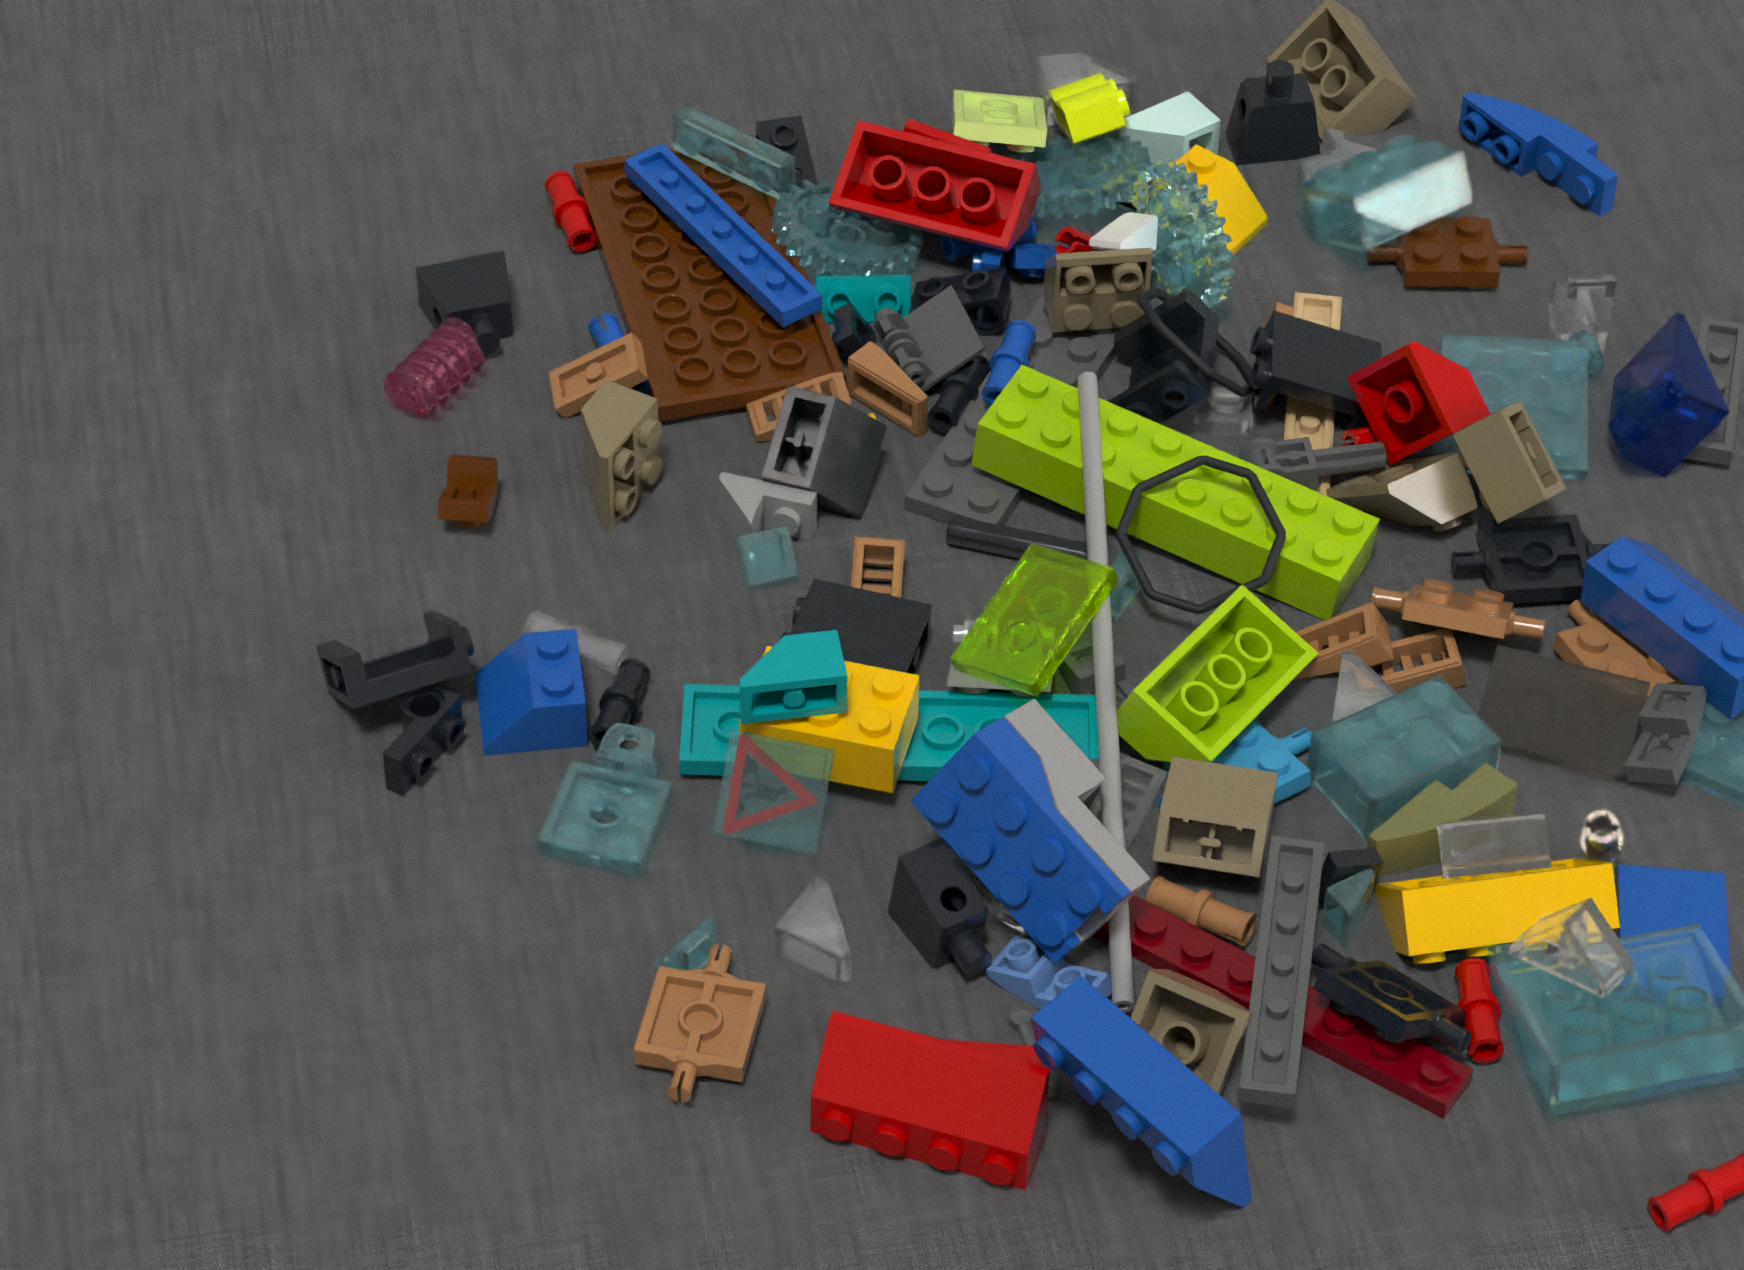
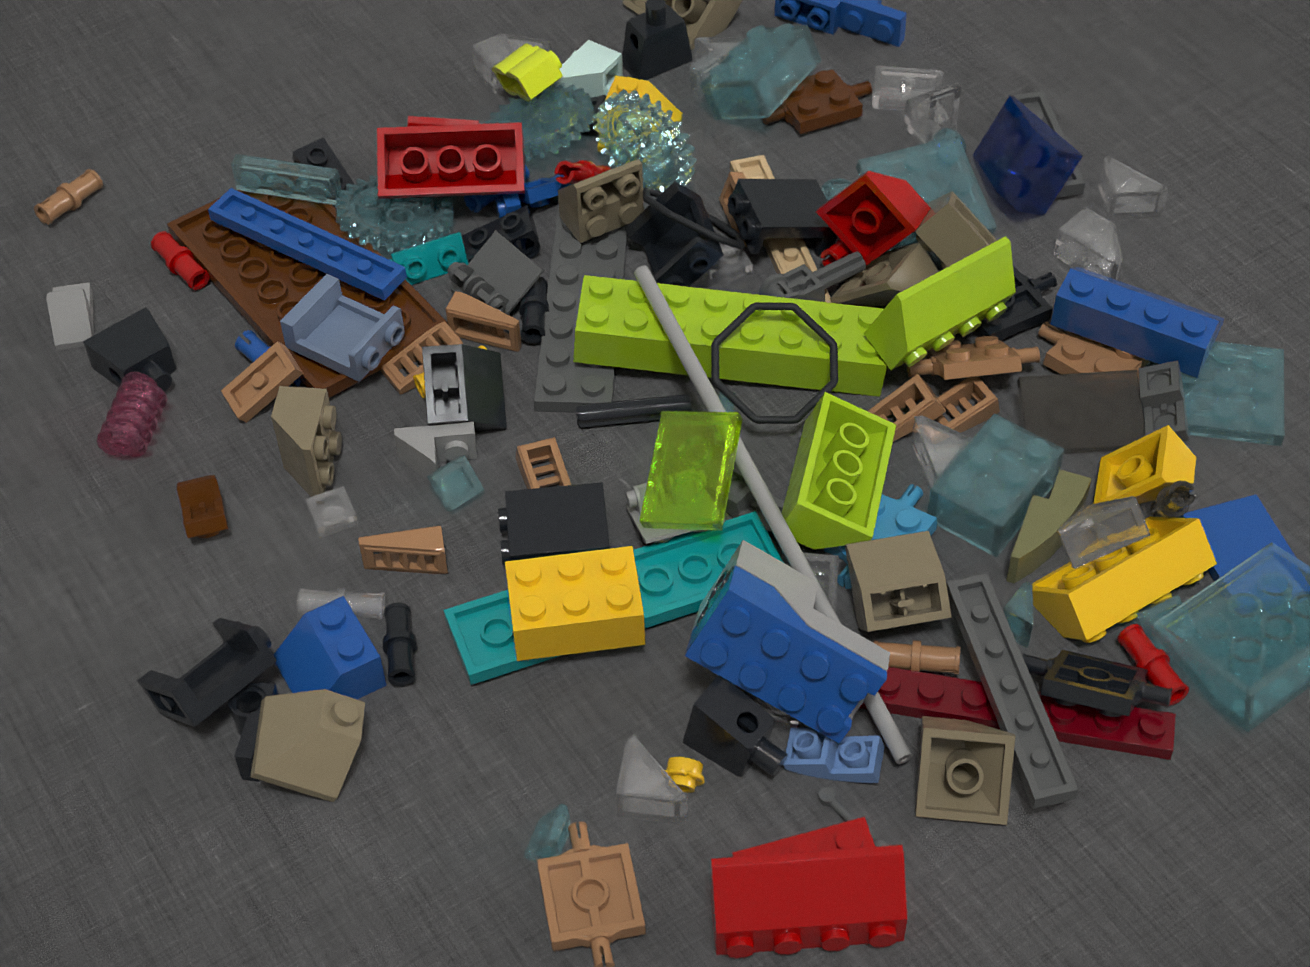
camera: 20 degrees left, 5 degrees up
(419, 235) = (71, 315): none -> light grey slope
(468, 765) = (307, 741): none -> dark tan slope
(475, 99) = (68, 196): none -> medium nougat pin
(612, 542) = (331, 511): none -> clear plate
(618, 784) = (431, 714): clear light blue plate -> none
(686, 611) = (406, 551): none -> medium nougat slope
(713, 343) = (340, 330): none -> sand blue panel
(773, 791) = (556, 677): clear light blue piece -> none
(796, 679) = (551, 584): teal slope -> none
(851, 330) = (436, 289): black plate -> none
(868, 940) = (685, 773): none -> yellow plate
(999, 119) = (467, 98): yellowish green plate -> none
(1009, 358) = (565, 277): blue pin -> none
(1128, 232) = (607, 154): white slope -> none
(1144, 1090) = (981, 834): blue slope -> none
(1345, 864) = (1008, 583): black plate -> none
(1440, 529) = (944, 306): none -> lime slope
(1557, 257) = (897, 84): none -> clear slope
(1577, 948) = (1208, 593): clear slope -> none
(1617, 785) = (1145, 467): none -> yellow slope
(1691, 526) = (1090, 243): none -> clear slope

